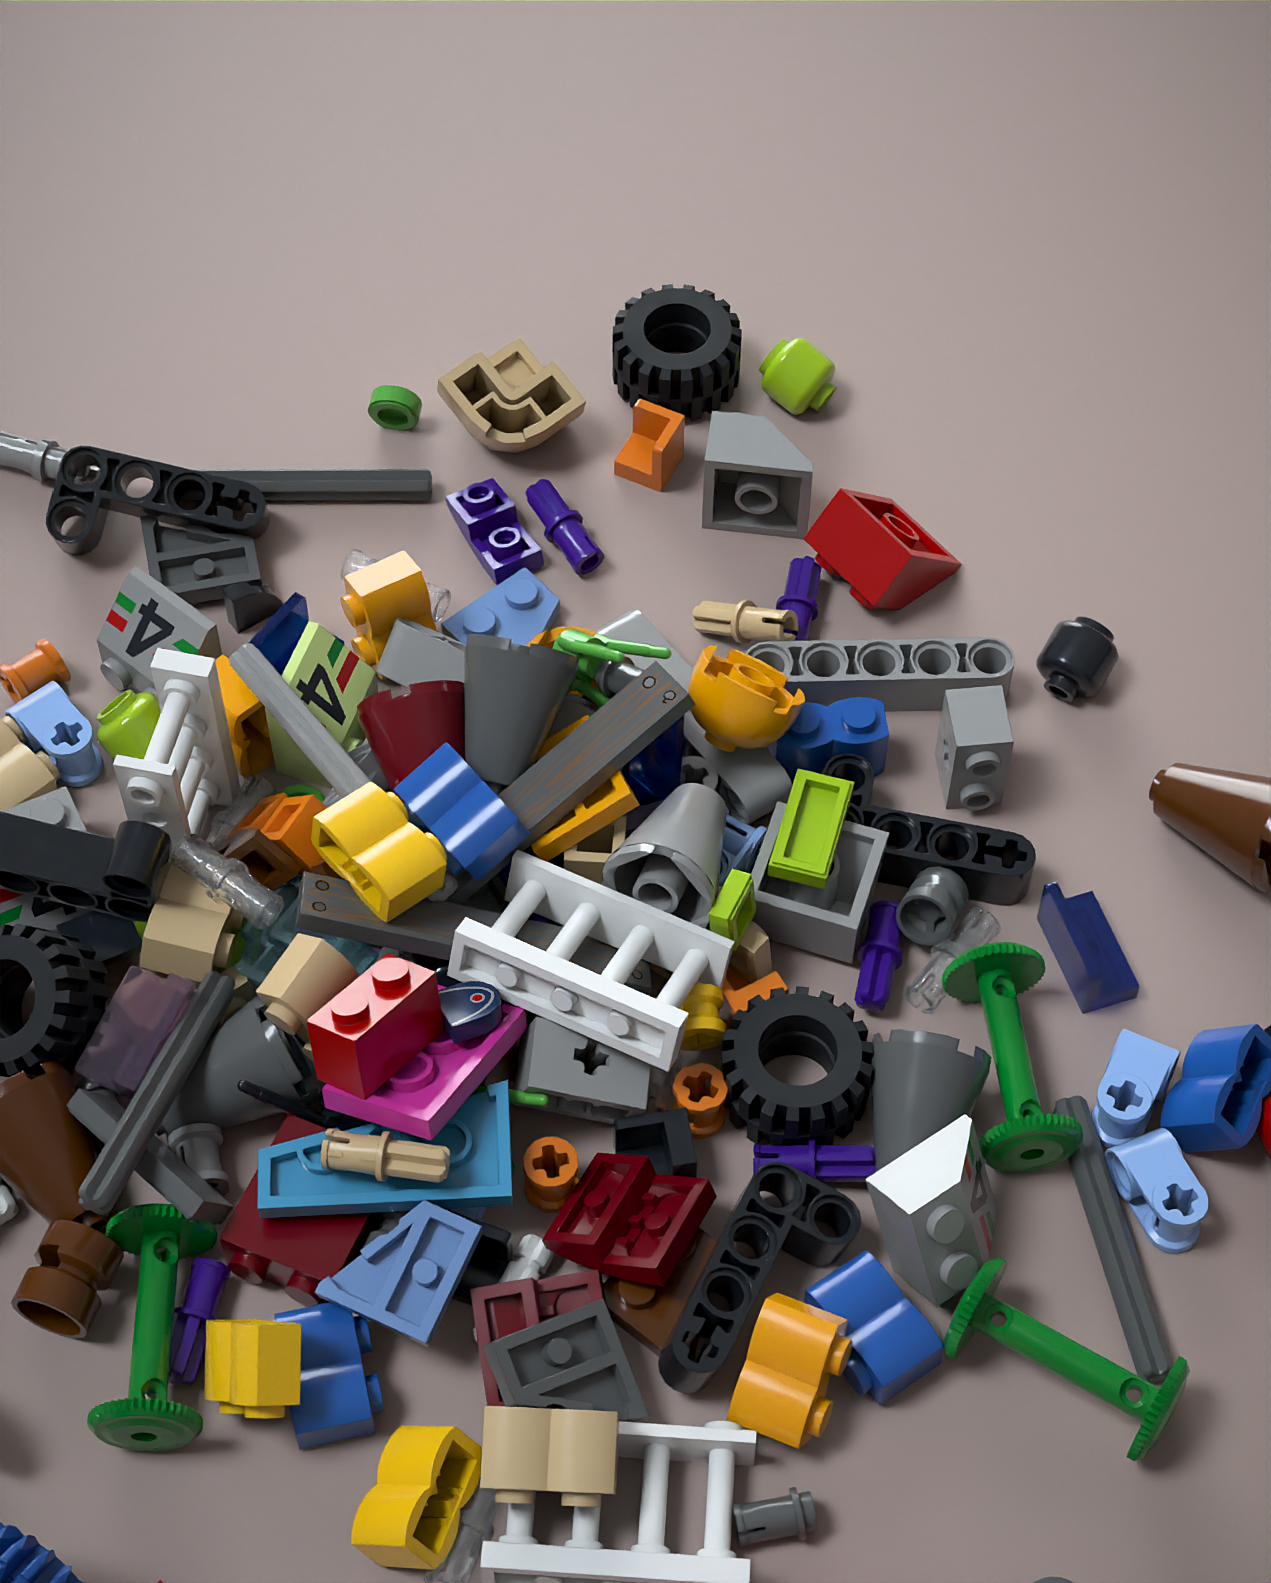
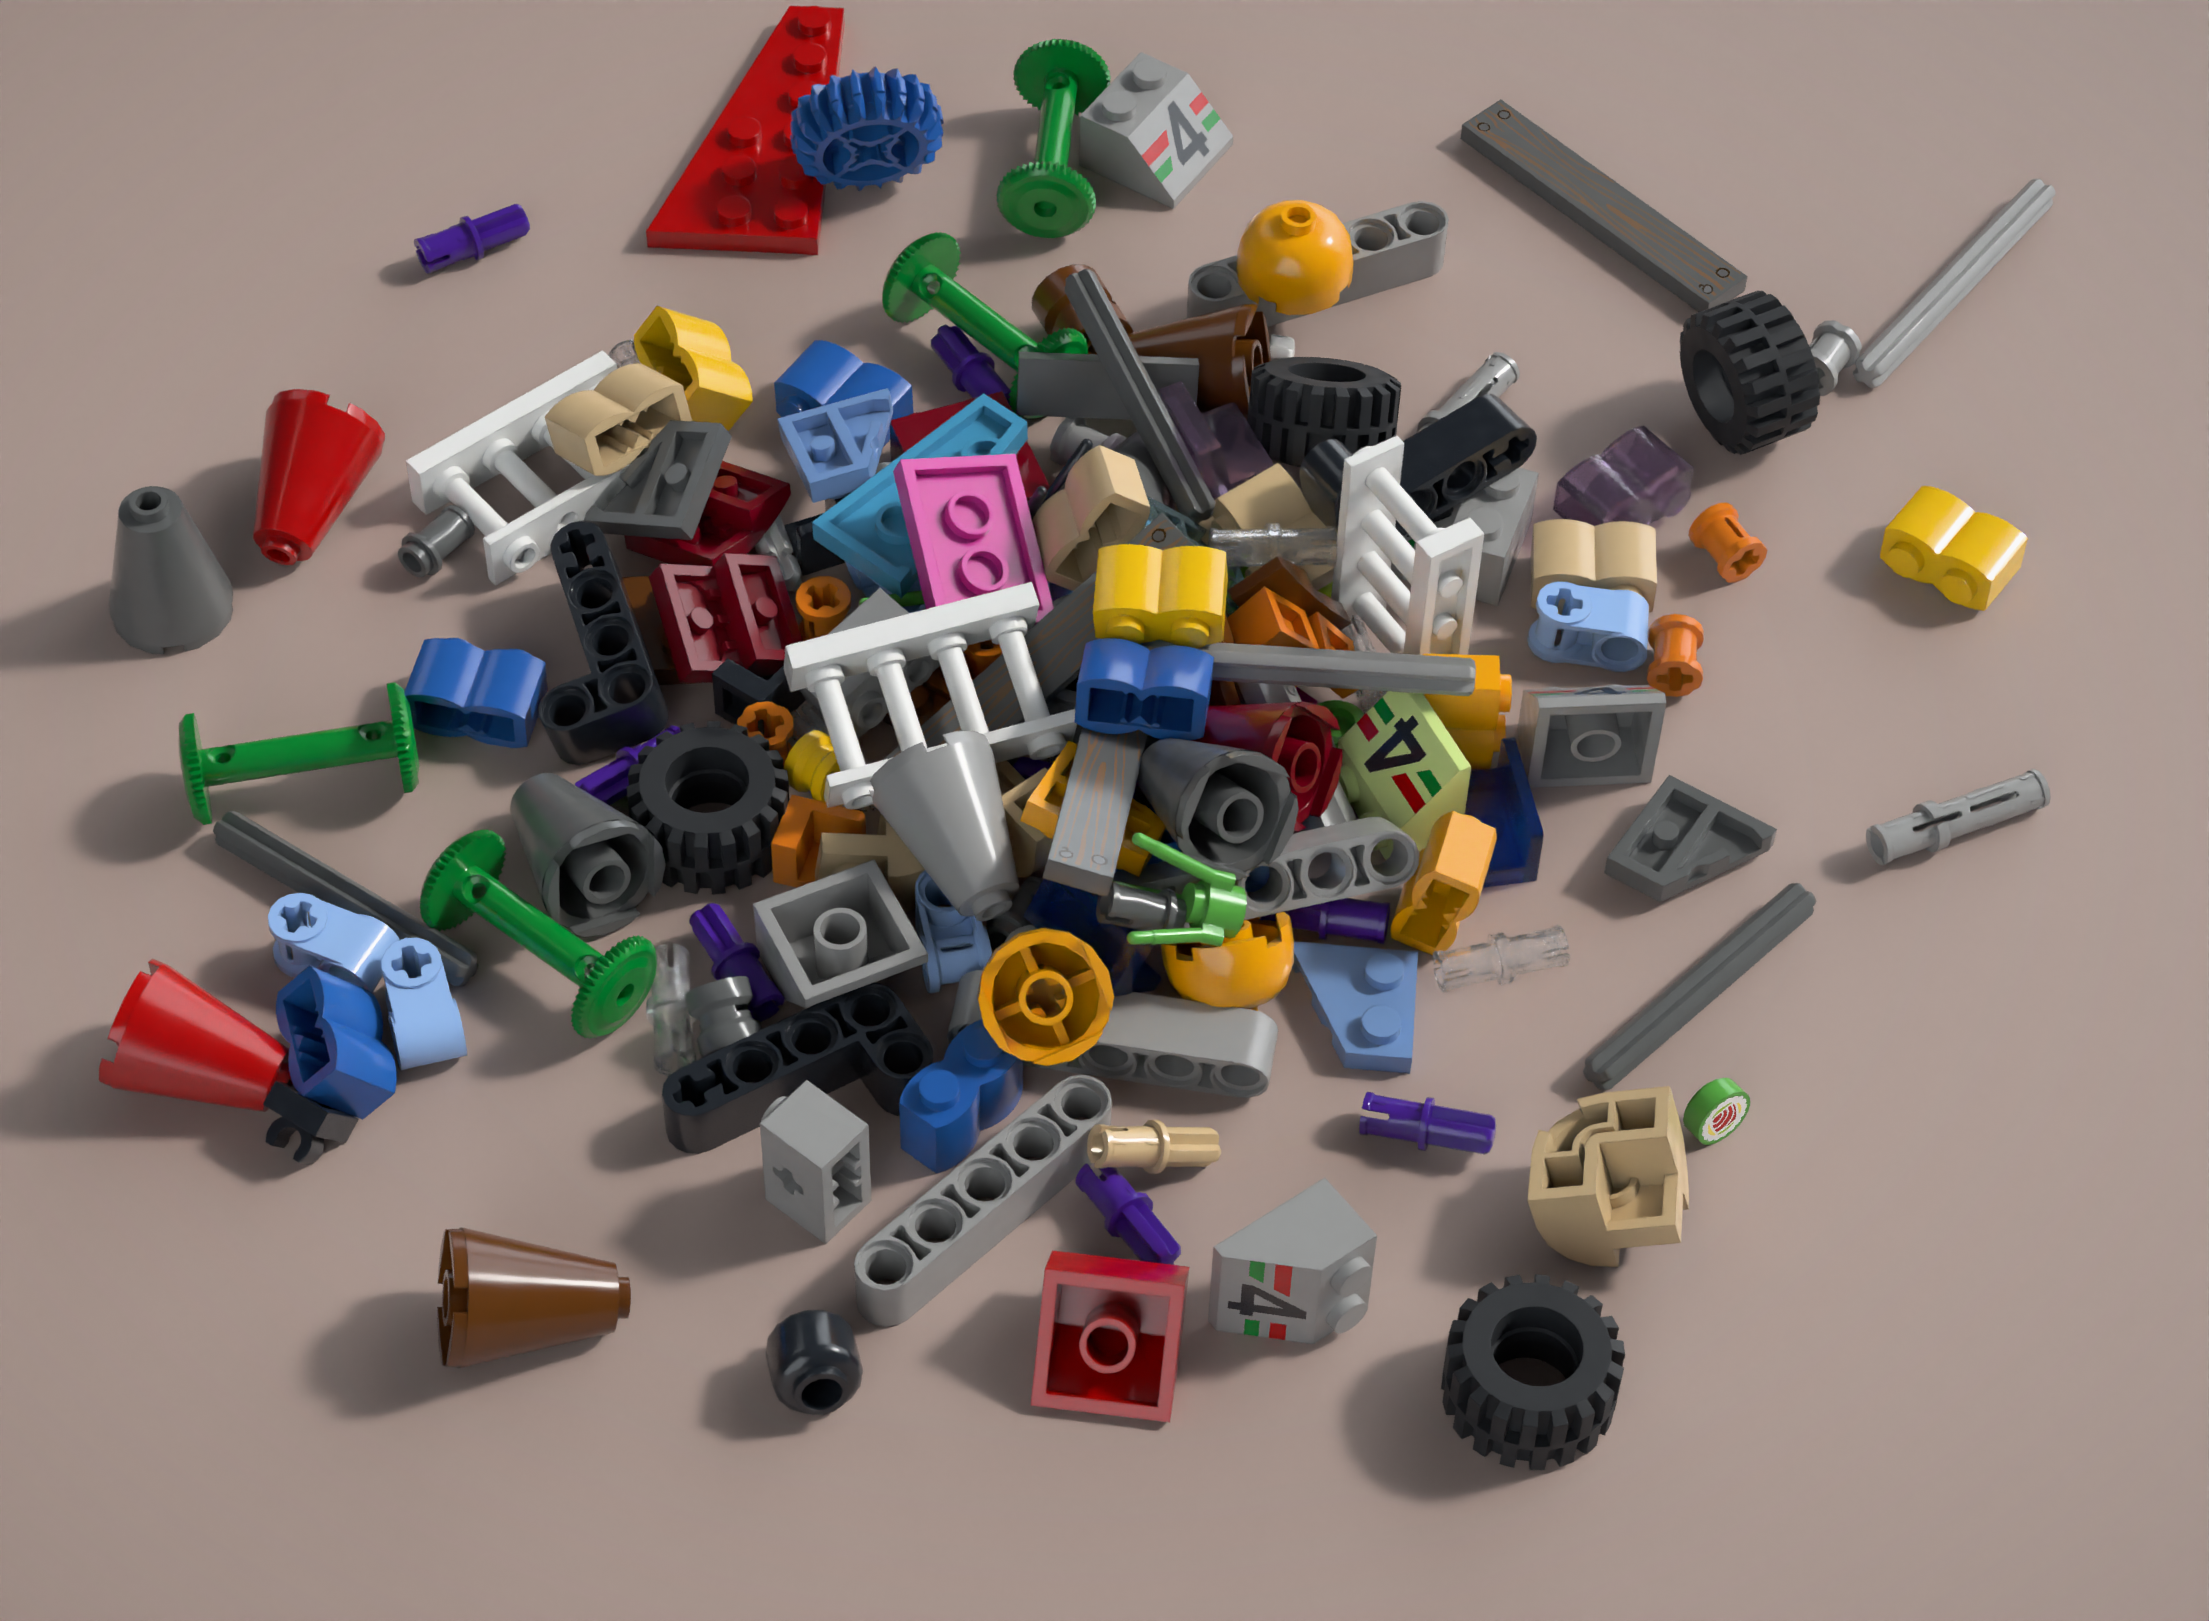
camera: 135 degrees right, 5 degrees down
(128, 724) = (1532, 653): lime head -> none
(169, 483) = (1820, 819): black beam -> none
(249, 604) = (1593, 842): black tile -> none
(253, 1366) = (884, 334): yellow brick -> none
(375, 1026) = (1017, 497): red brick -> none
(384, 1156) = (946, 443): tan axle -> none
(470, 1009) = (975, 575): dark blue tile -> none
(493, 530) = (1504, 1084): dark purple slope -> none
(652, 447) = (1439, 1266): orange panel -> none
(733, 907) = (862, 821): lime tile -> none
(790, 1370) = (503, 600): light orange brick -> none
(798, 376) = (1393, 1458): lime head -> none
(810, 828) = (871, 941): lime tile -> none
(937, 1211) = (482, 756): light grey slope -> none
(1085, 949) = (565, 1098): clear blue panel -> none

